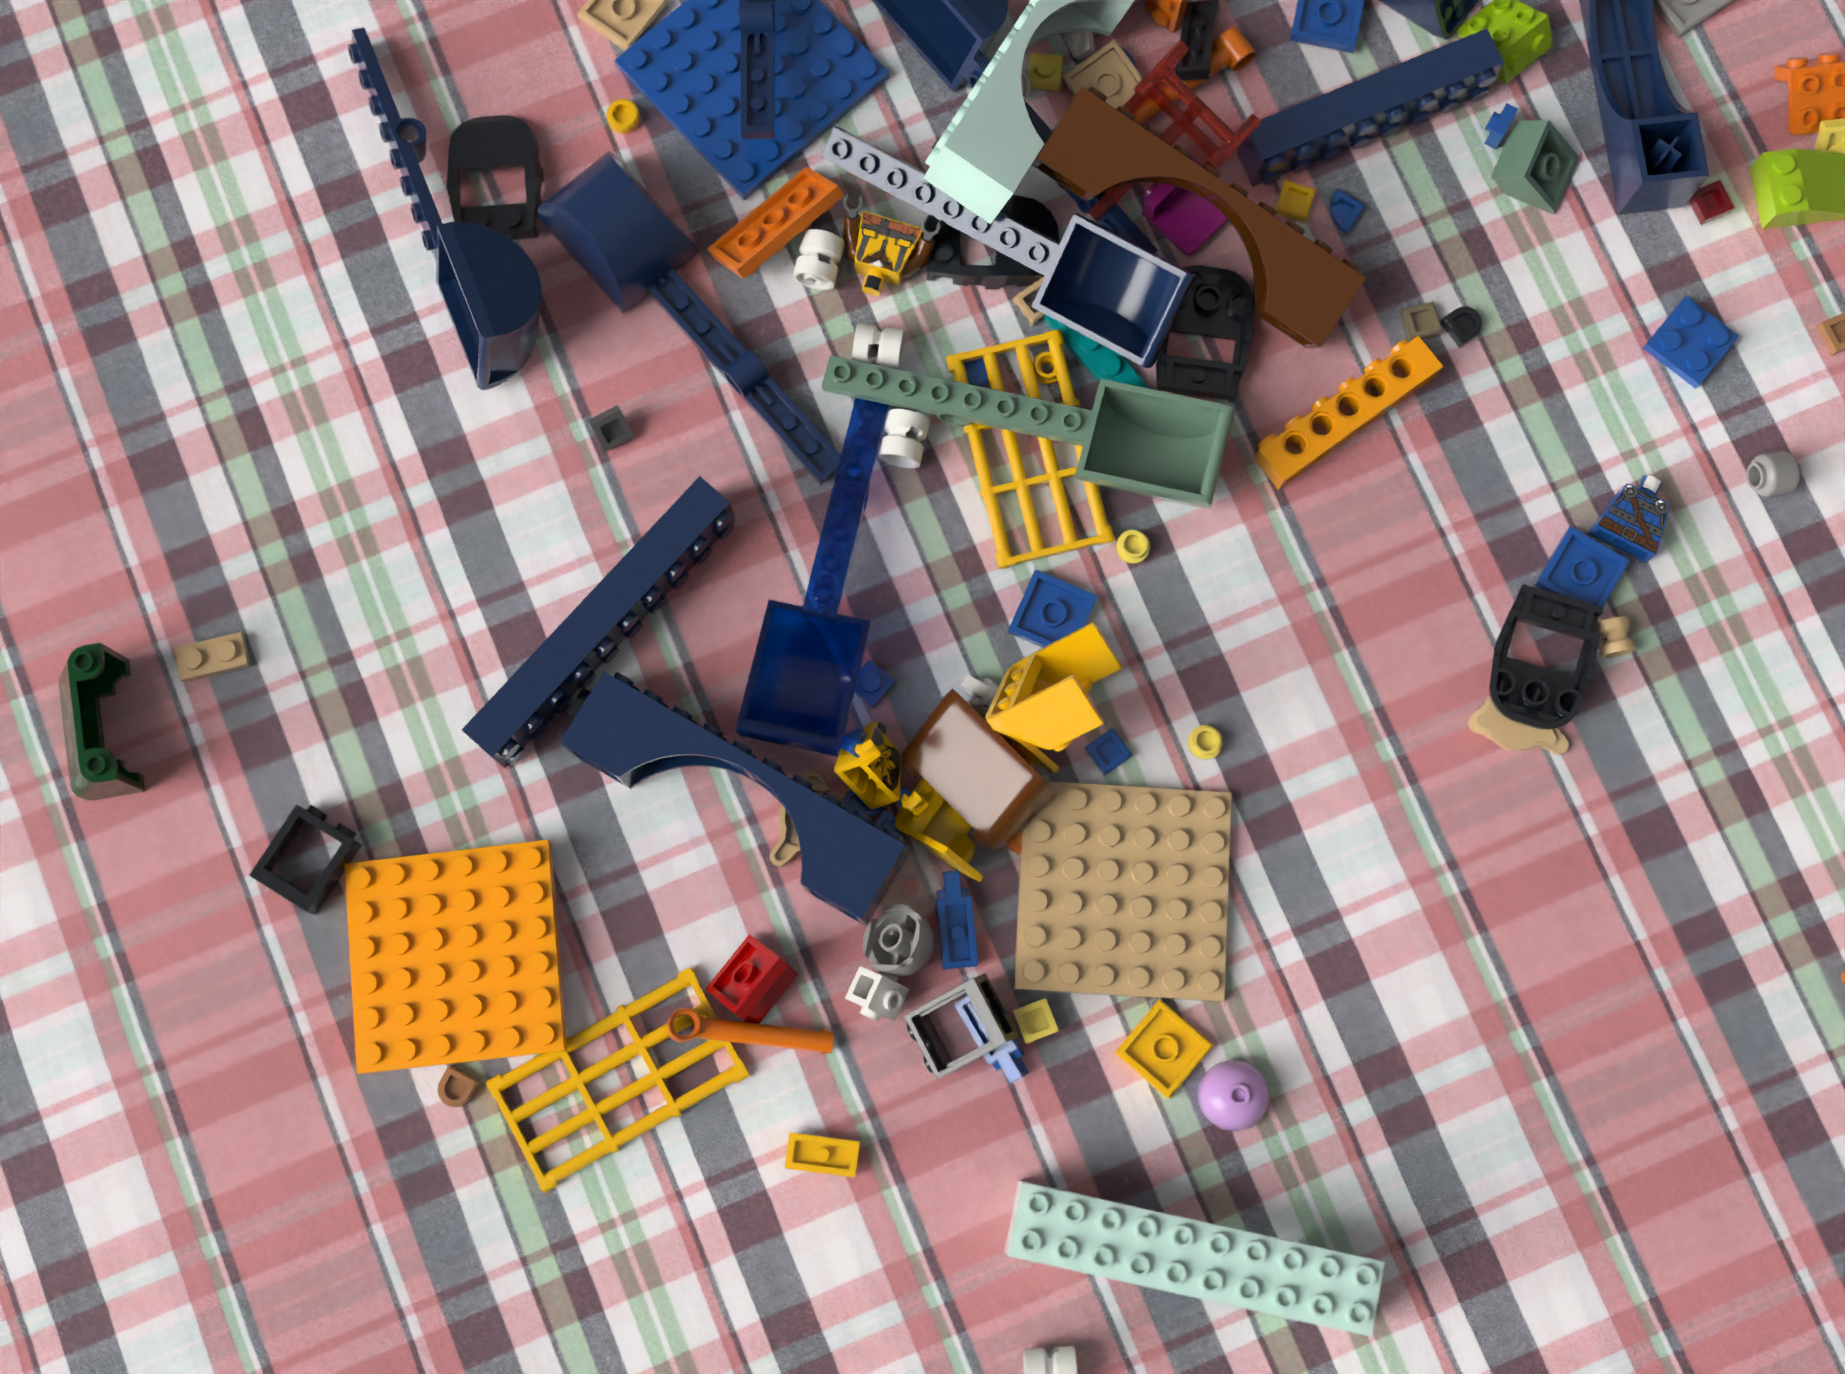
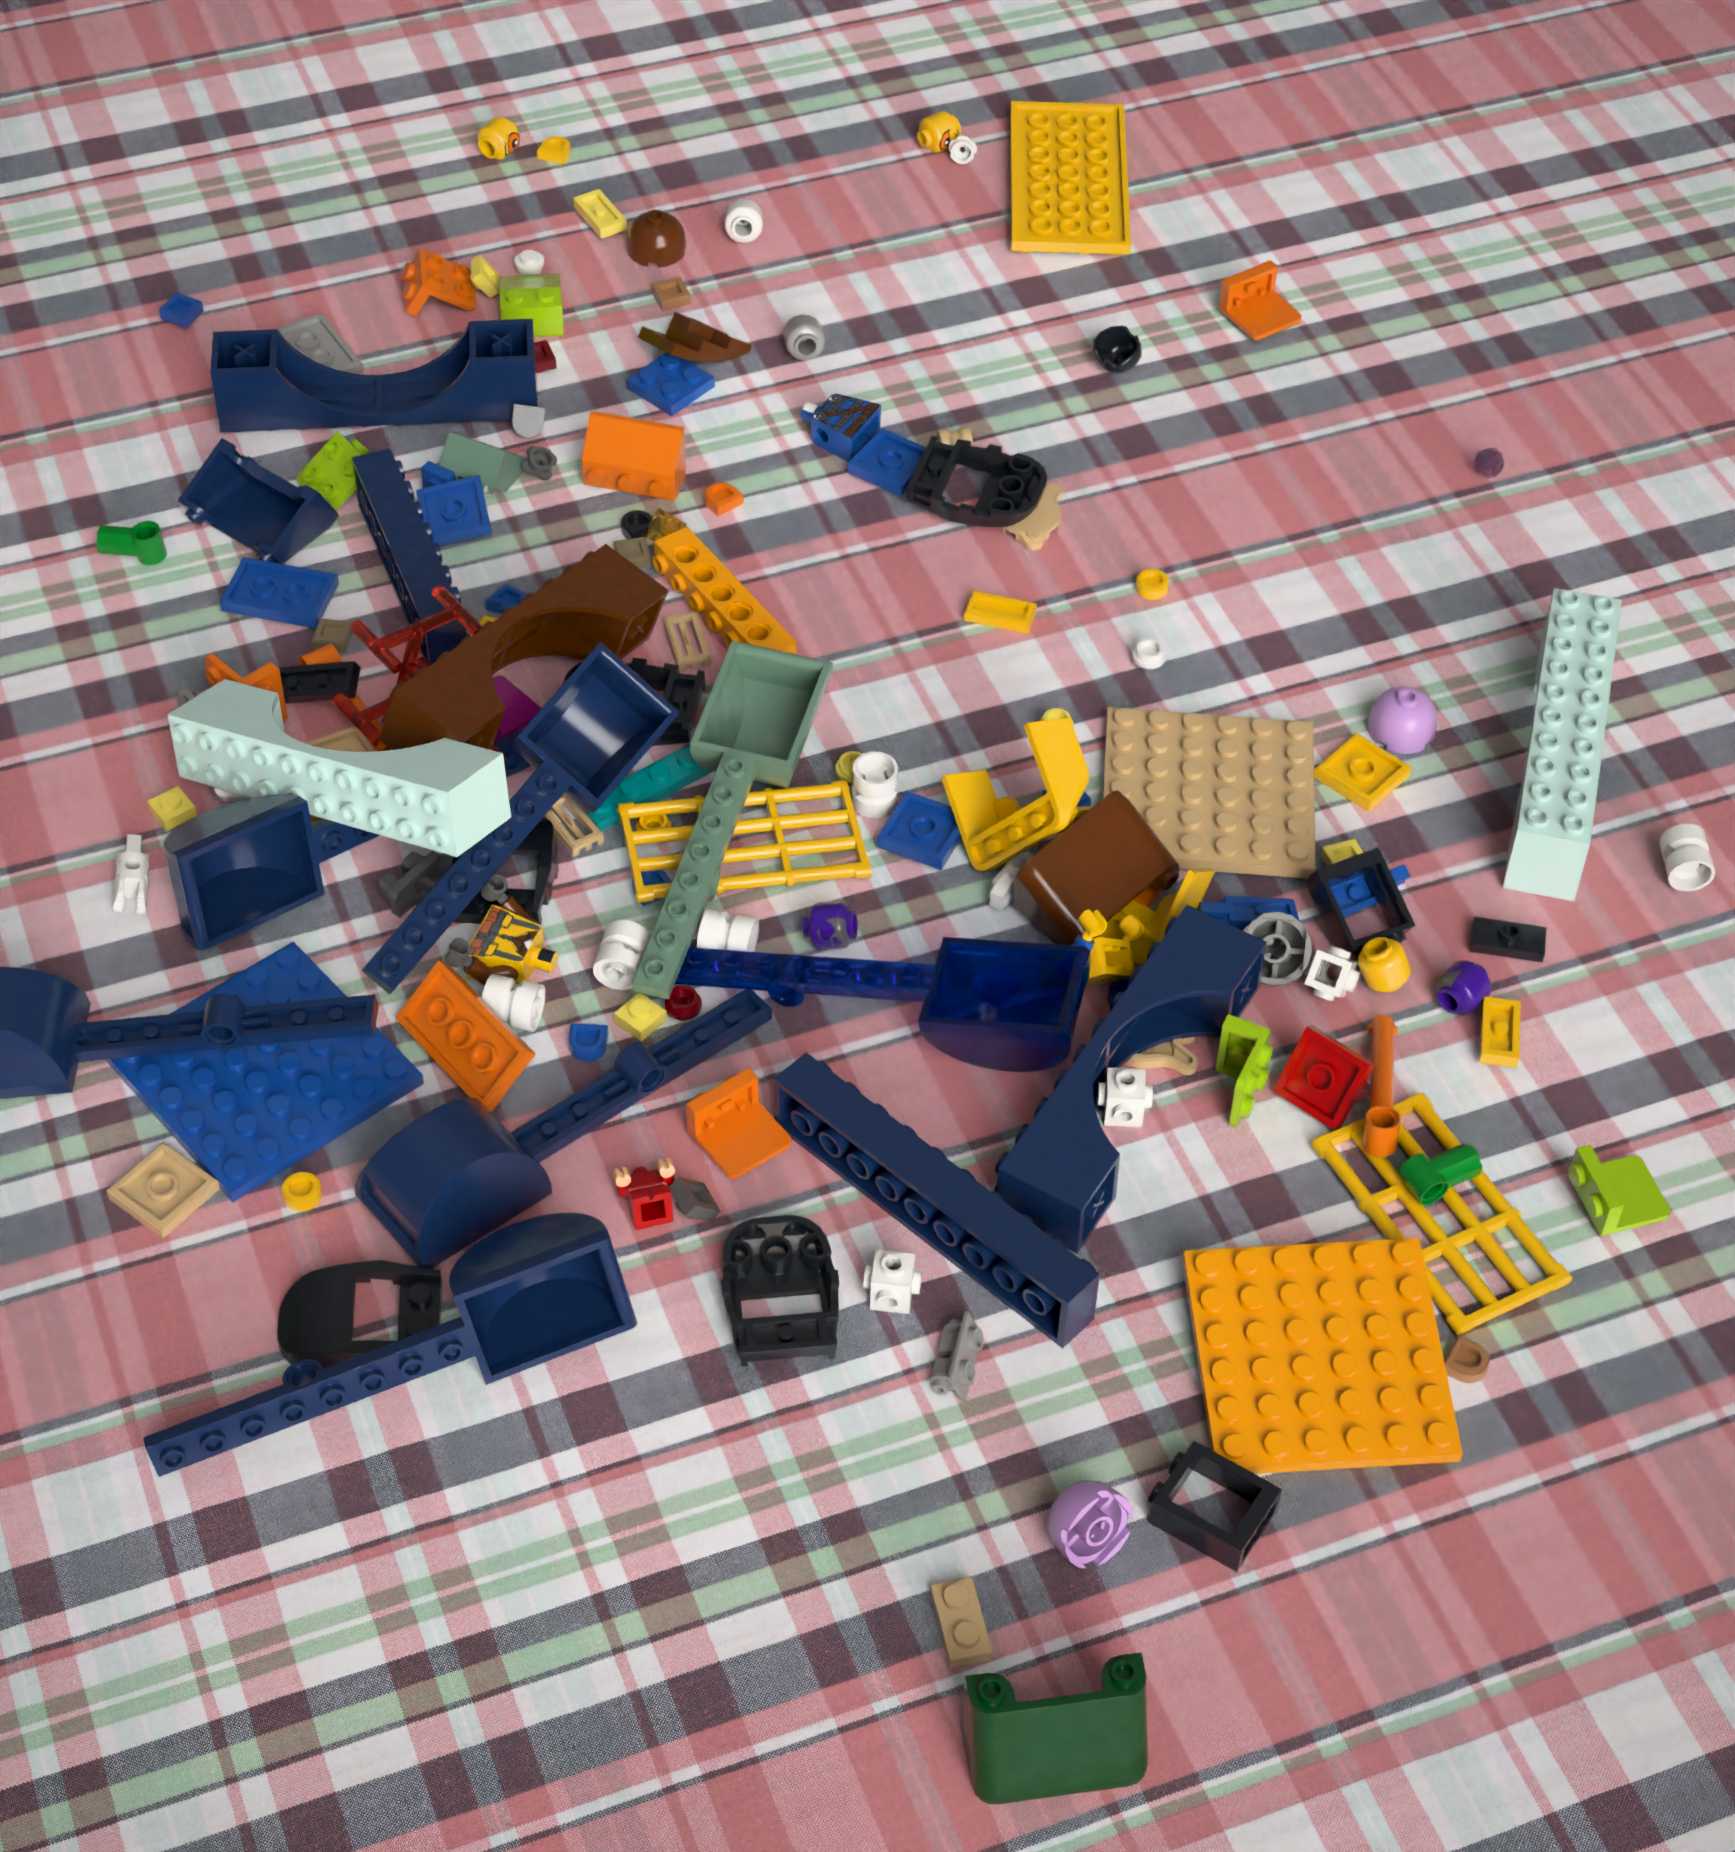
camera: 90 degrees left, 30 degrees down
(288, 751) = (1089, 1522): none -> lavender cylinder
(440, 649) = (961, 1342): none -> light grey hinge
(529, 603) = (892, 1281): none -> white brick
(550, 495) = (773, 1261): none -> black slope
(616, 387) = (647, 1193): none -> red piece
(633, 1246) = (1616, 1192): none -> lime bracket
(636, 1069) = (1433, 1176): none -> green piece
(686, 456) = (735, 1125): none -> orange bracket
(734, 806) = (1124, 1096): none -> white brick
(775, 903) = (1244, 1056): none -> lime bracket
(790, 330) = (588, 1041): none -> blue tile
(813, 371) = (640, 1016): none -> light yellow plate
(832, 398) = (683, 1003): none -> dark red plate
(871, 1123) = (1462, 987): none -> dark purple head
(889, 1046) = (1384, 964): none -> yellow head
(924, 530) = (830, 925): none -> dark purple head
(944, 1176) = (1508, 939): none -> black plate
(1100, 564) = (874, 784): none -> white wheel
(1273, 391) = (691, 659): none -> tan tile
(1281, 56) = (333, 632): none -> dark tan tile
(1313, 837) = (1149, 653): none -> white plate
(1367, 688) = (1000, 612): none -> yellow tile
(1423, 845) = (1152, 584): none -> yellow tile
(1453, 350) = (663, 525): none -> clear yellow plate
(1455, 144) = (455, 510): none -> blue plate
(1513, 404) = (722, 498): none -> orange tile
(1537, 213) = (541, 455): none -> dark grey plate
(1545, 308) = (634, 455): none -> orange slope
(1605, 201) = (527, 420): none -> tile
(1650, 1228) = (1489, 462): none -> clear purple plate
(1755, 358) = (695, 340): none -> reddish brown slope
(1790, 813) = (1117, 349): none -> black hair

